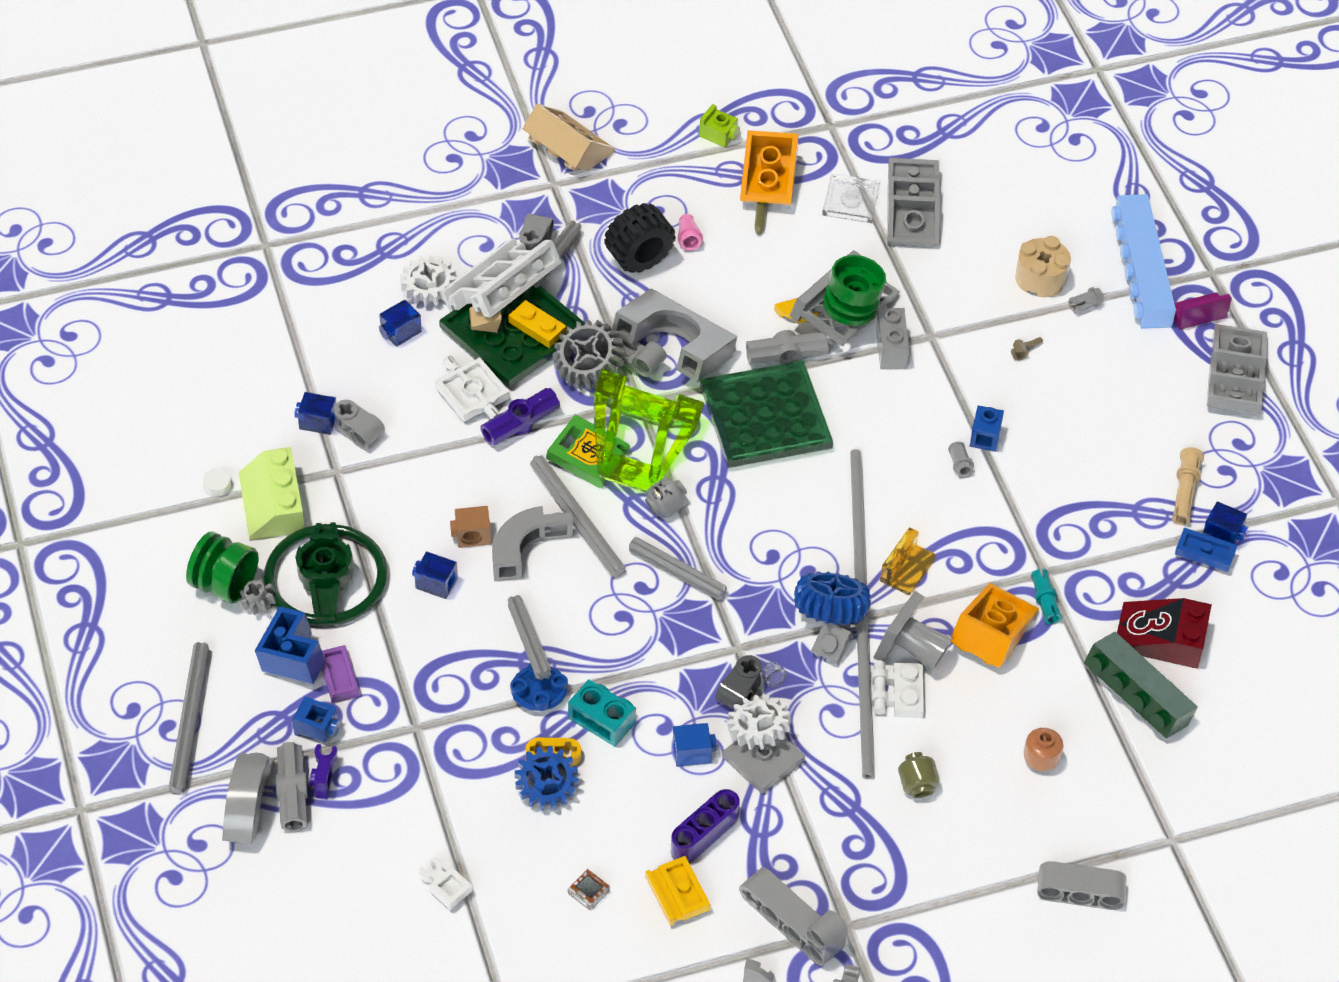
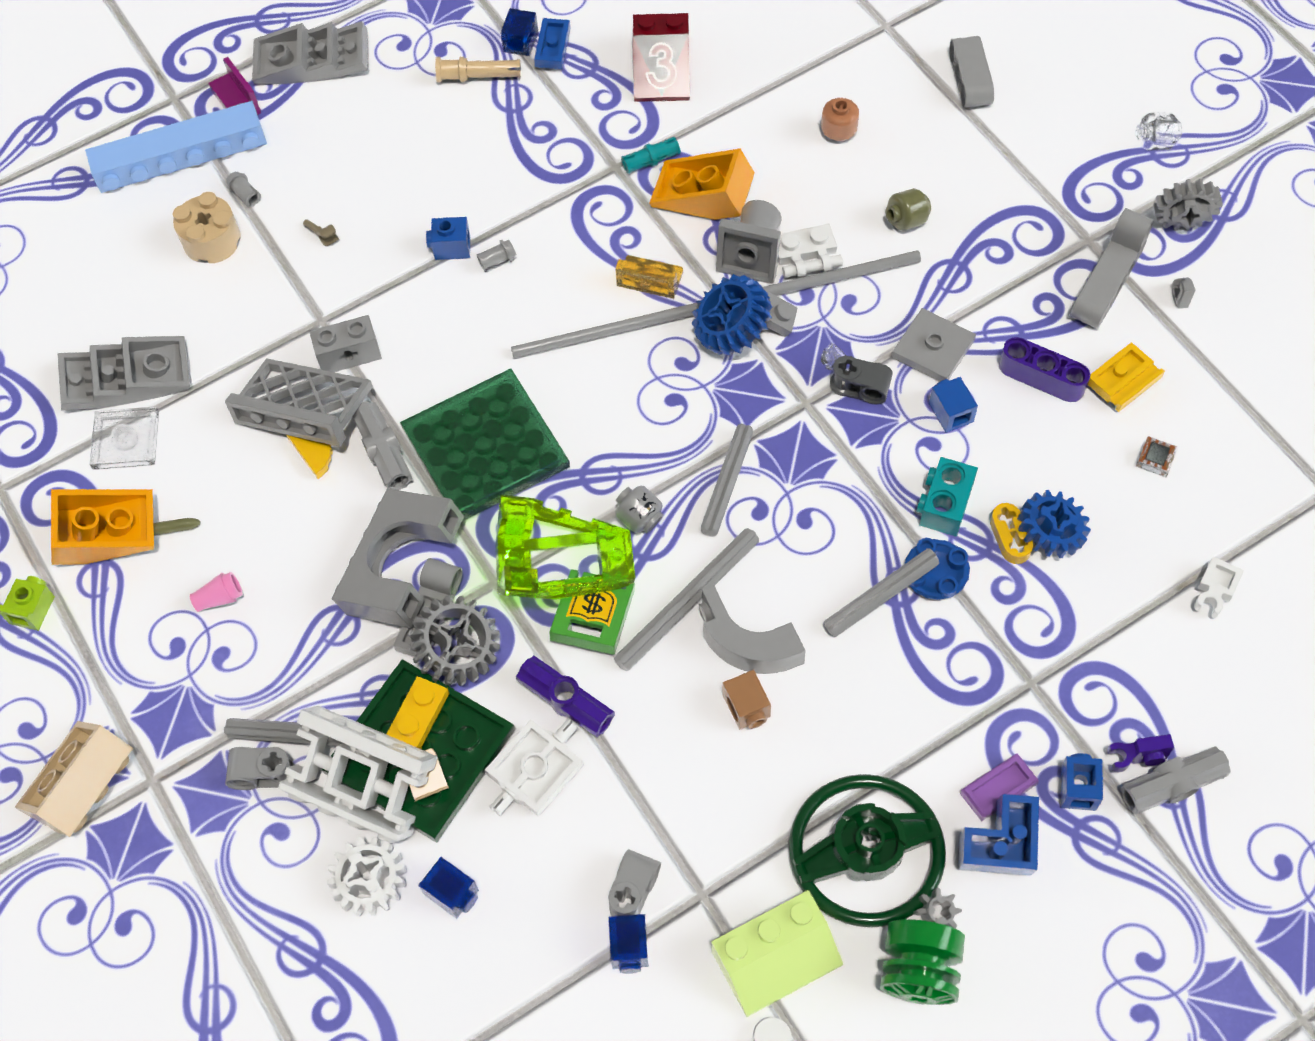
camera: 100 degrees left, 10 degrees up
(189, 718) = (1129, 935): light grey axle -> none
(245, 797) = (1213, 813): light grey arch -> none
(435, 574) = (830, 719): clear blue brick -> none
(639, 238) = (256, 627): black tyre -> none
(759, 722) = (926, 342): white gear -> none
(854, 290) = (306, 369): green wheel -> none
(1140, 685) = (736, 61): brick -> none

